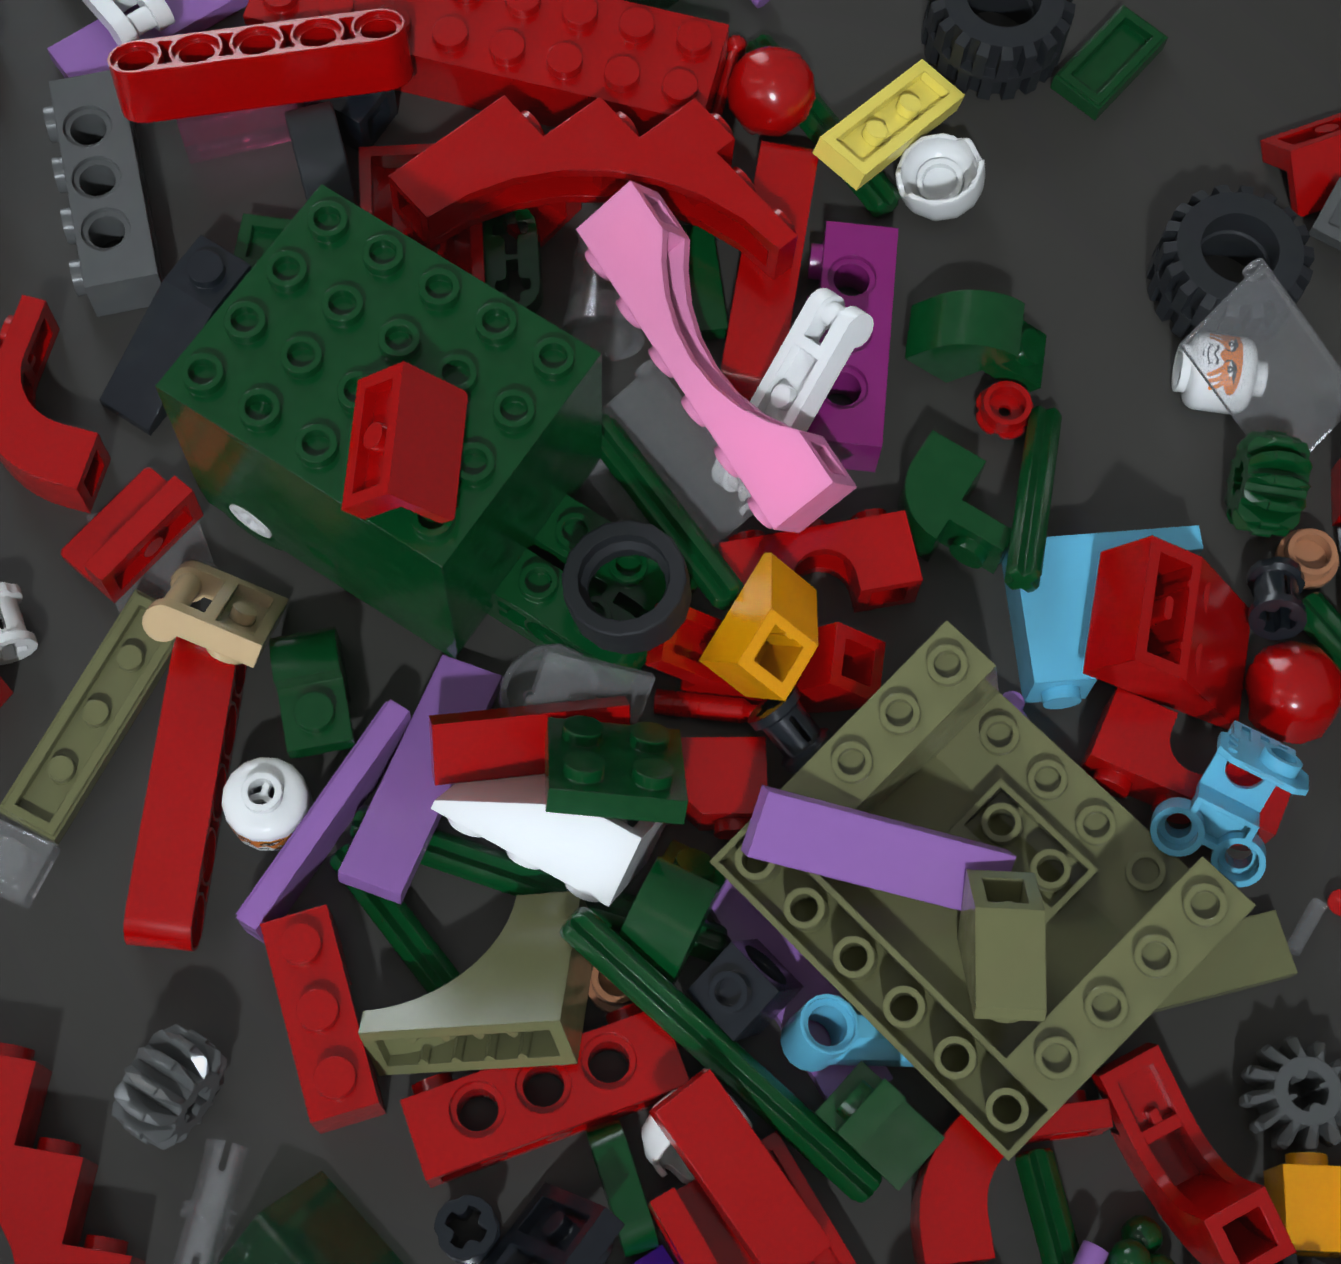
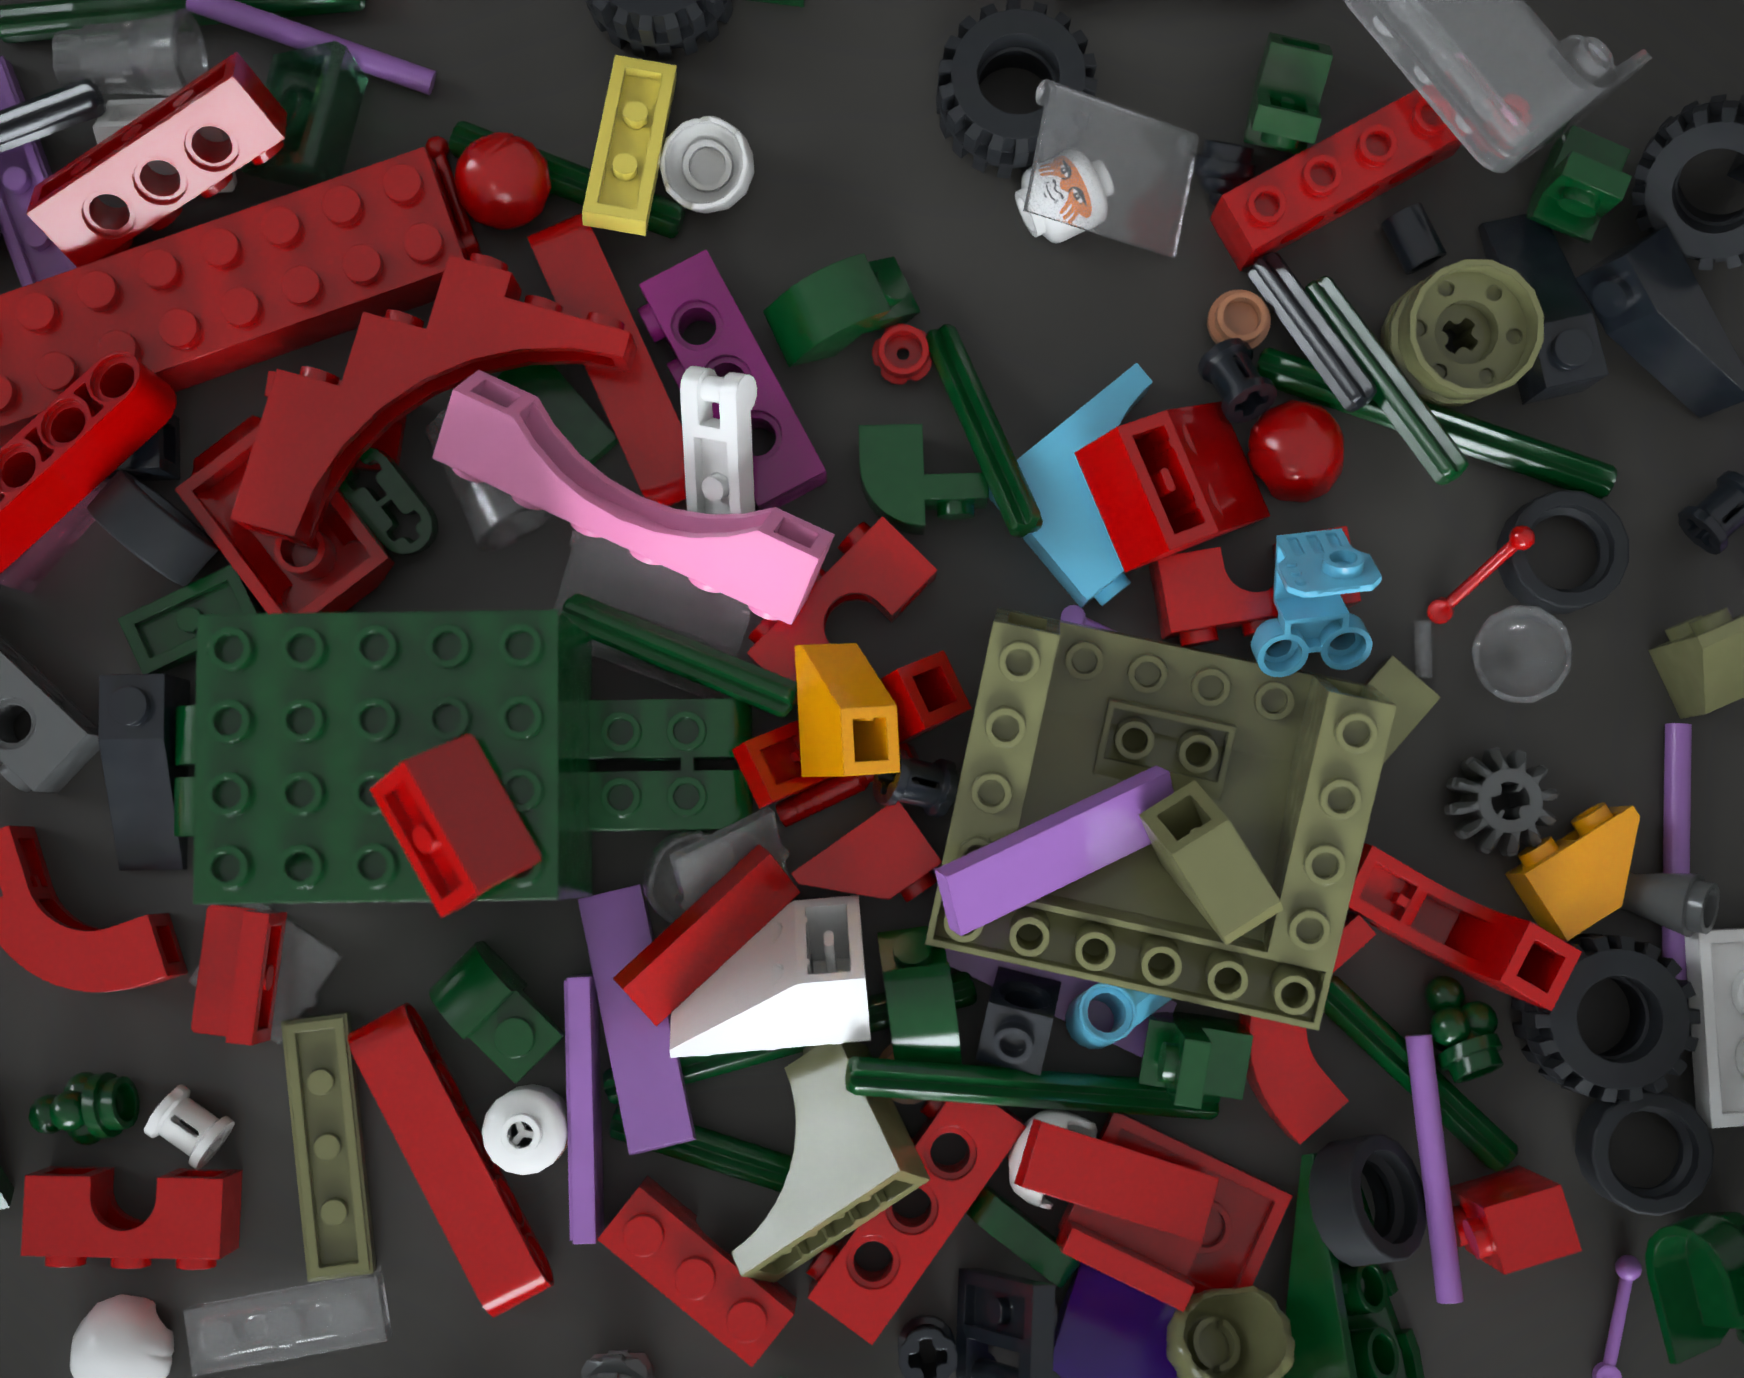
camera: 30 degrees left, 15 degrees up
(233, 625) = (390, 999): tan plate -> none
(614, 770) = (801, 929): dark green plate -> none
(621, 540) = (652, 761): black tyre -> none
(1268, 483) = (1170, 280): dark green gear -> none

